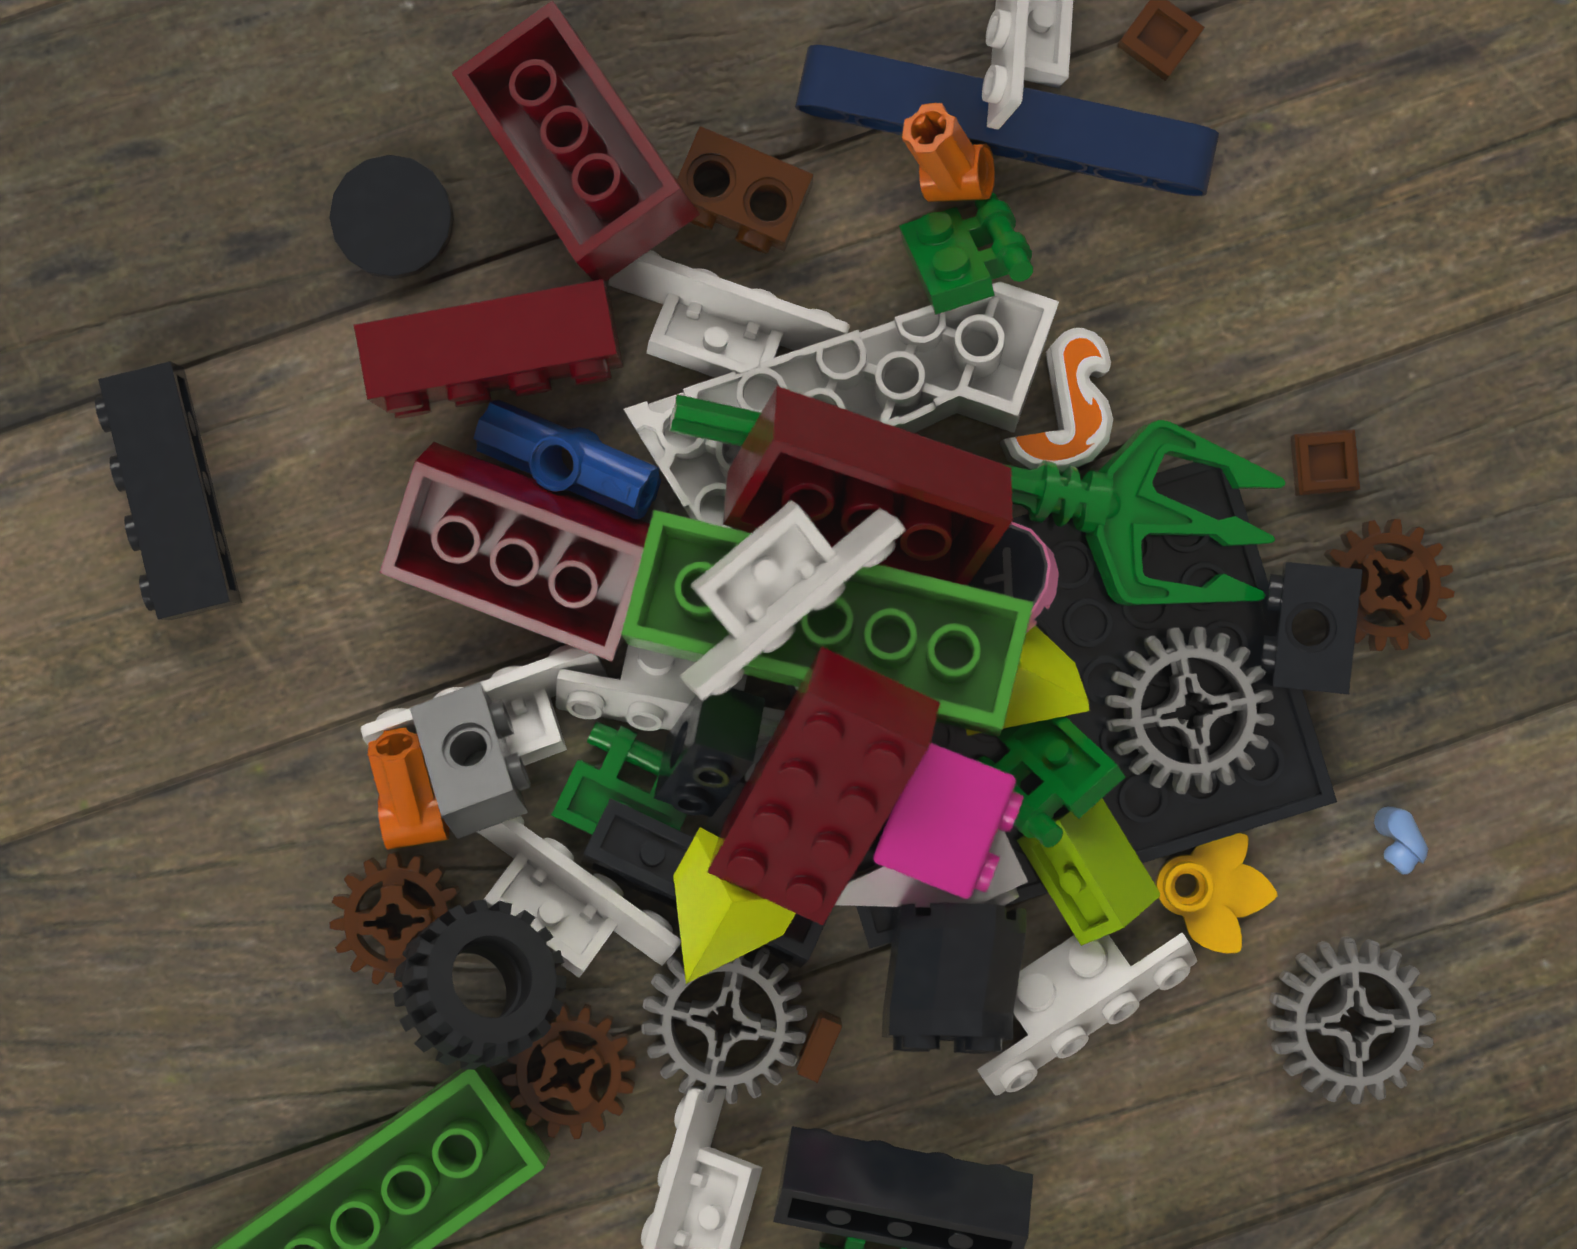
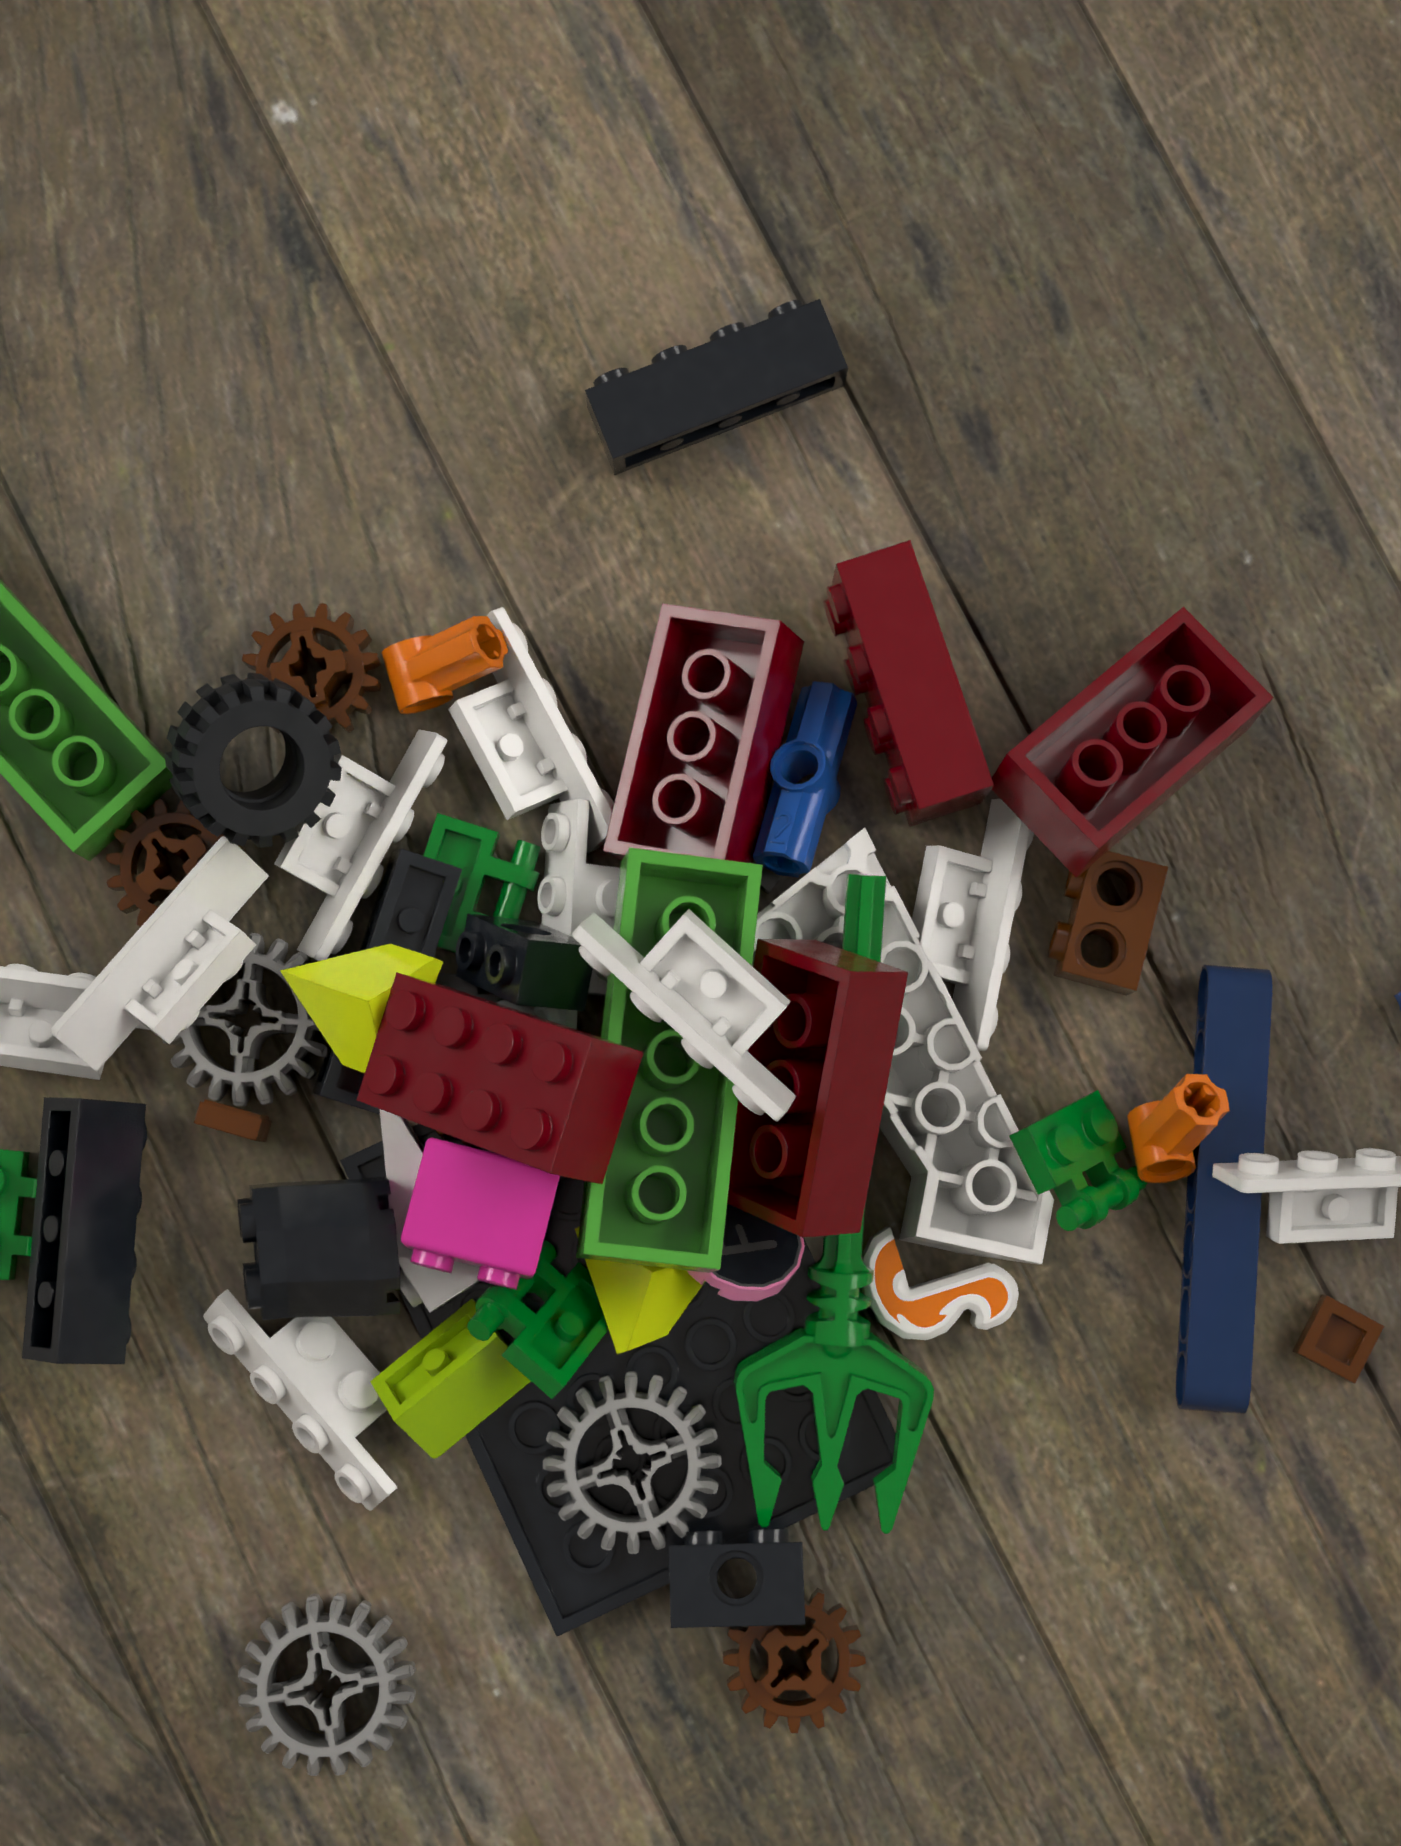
camera: 85 degrees right, 5 degrees down
(391, 216) = (1028, 570): black tile -> none
(448, 734) = (507, 696): brick -> none
(663, 1086) = (170, 961): none -> white bracket
(1221, 894) = (445, 1527): yellow plate -> none
(1325, 462) = (915, 1576): reddish brown tile -> none
(1408, 845) = (521, 1719): light blue arm -> none

